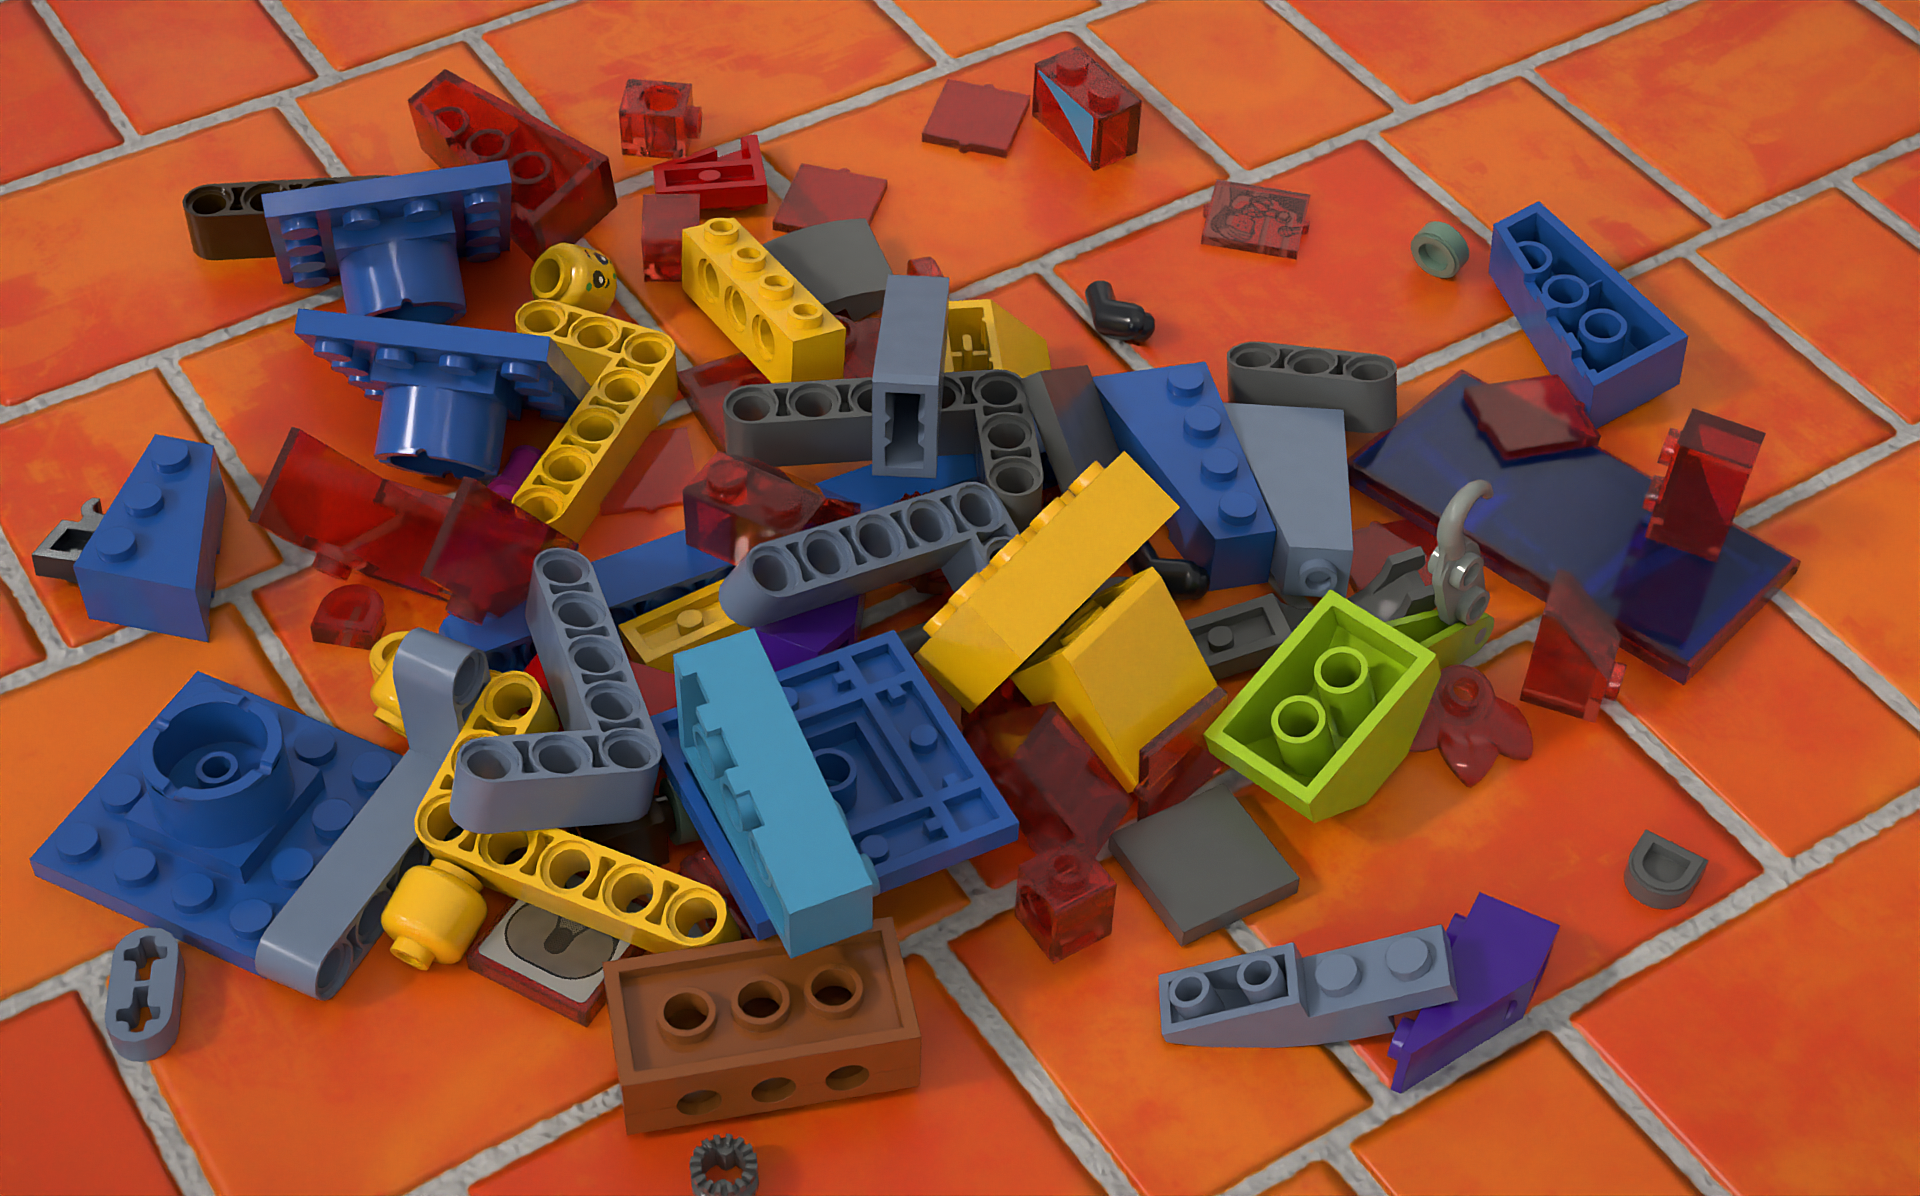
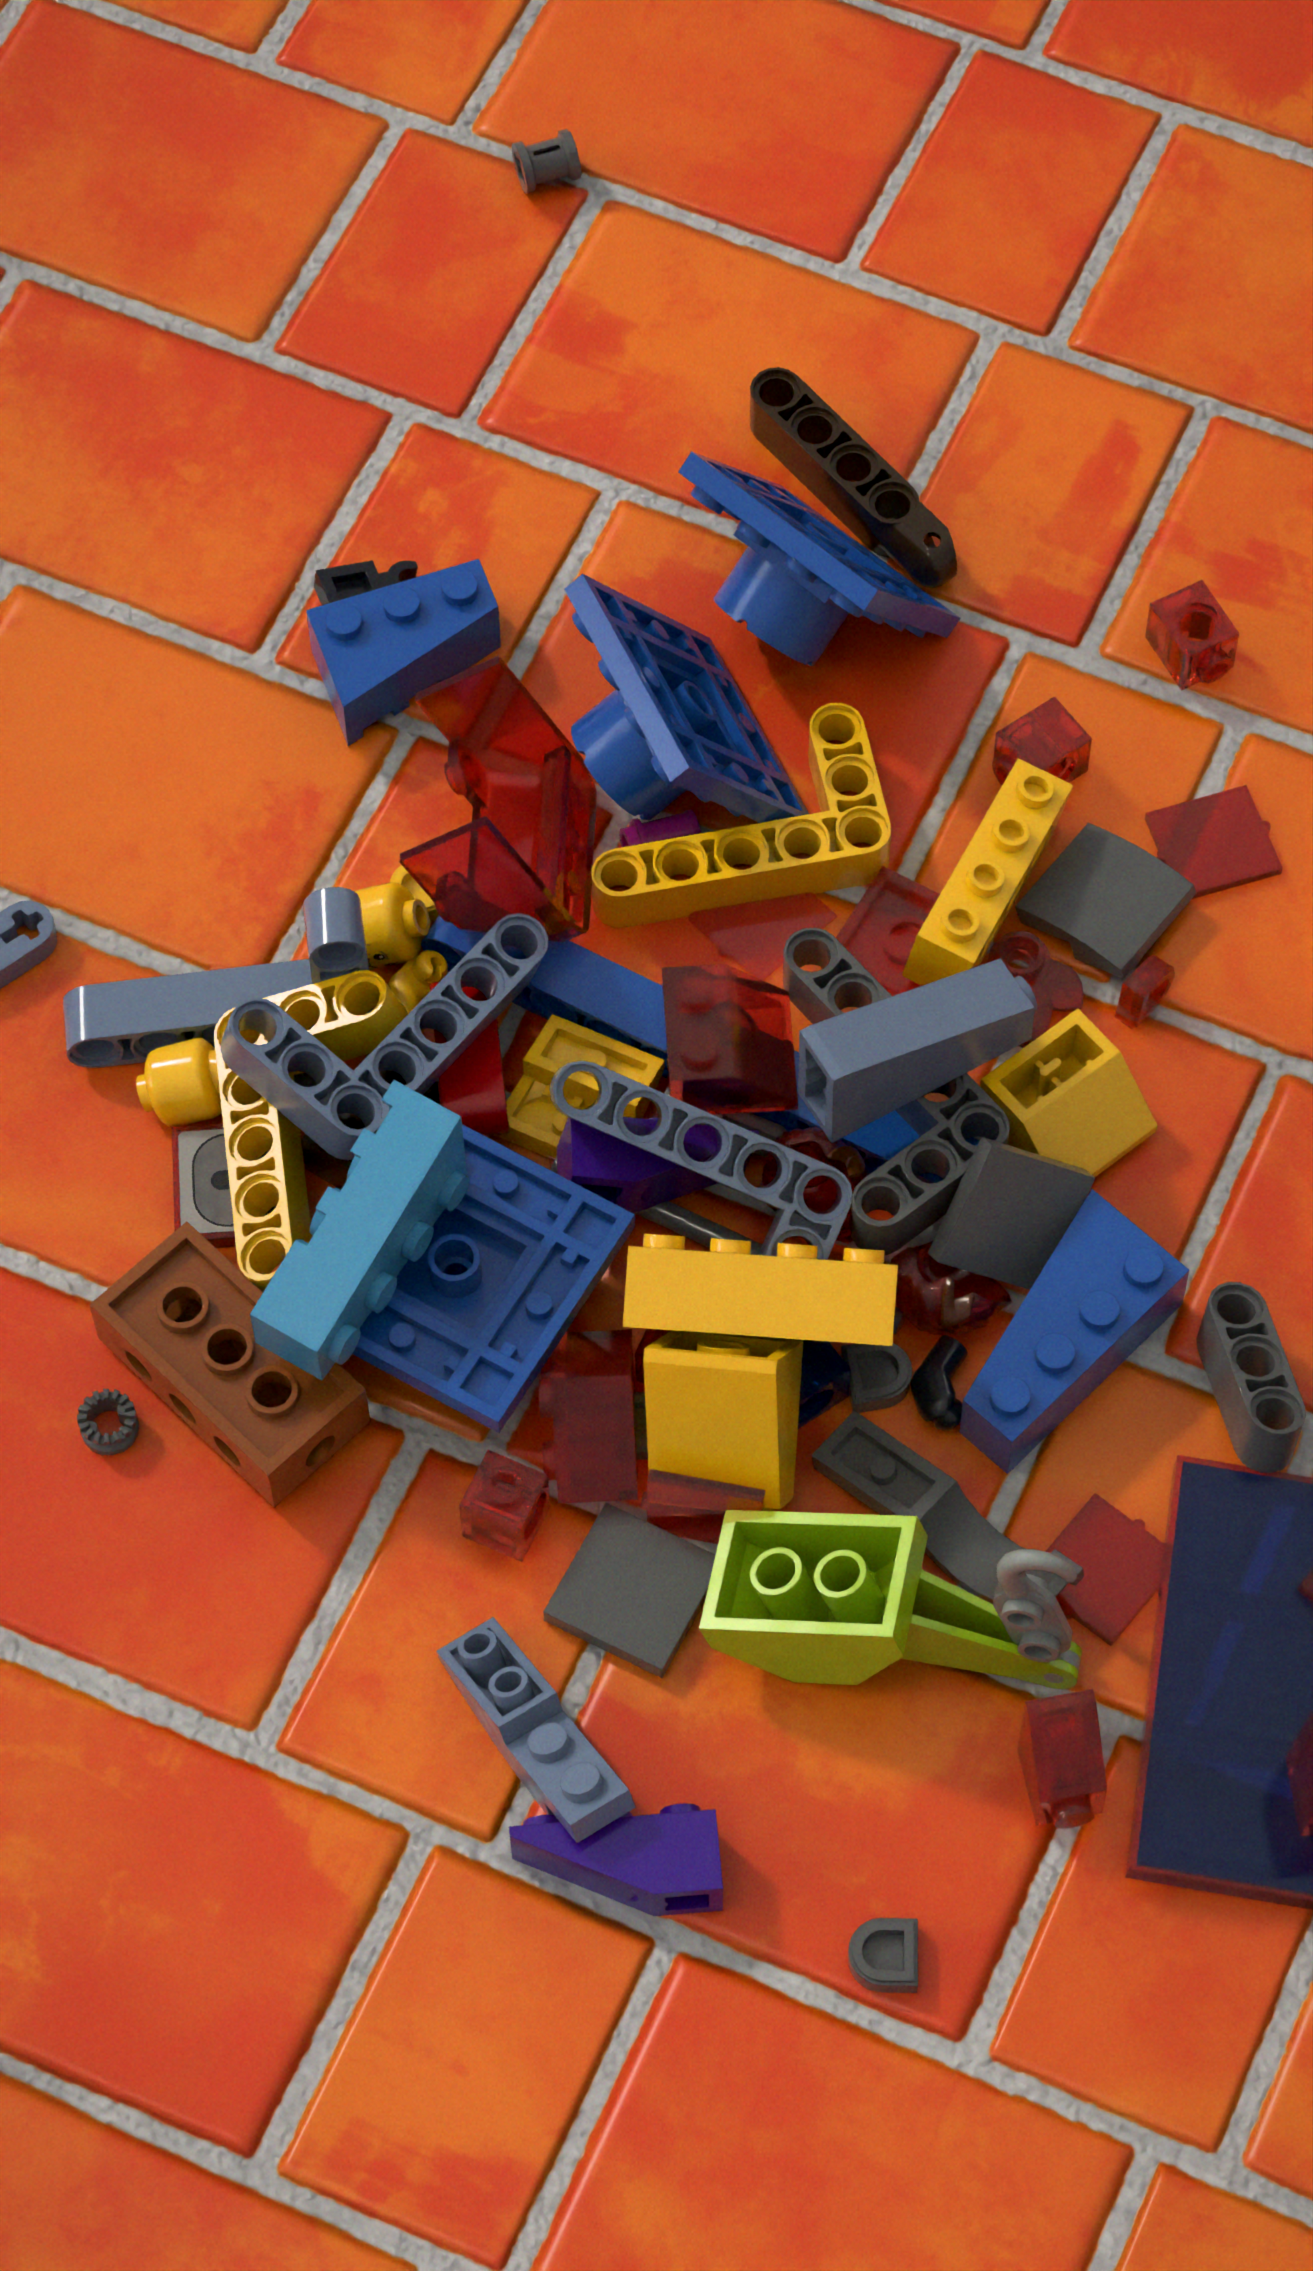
camera: 60 degrees right, 15 degrees up
(214, 817) = (185, 873): blue piece -> none
(350, 617) = (434, 815): clear red tile -> none
(556, 180) = (1013, 591): clear red wedge -> none
(575, 277) = (912, 718): yellow head -> none
(723, 181) = (1155, 731): red wing -> none
(1117, 318) = (1240, 1165): black arm -> none
(1305, 484) = (1104, 1435): sand blue slope -> none
(1474, 730) = (928, 1723): clear red plate -> none

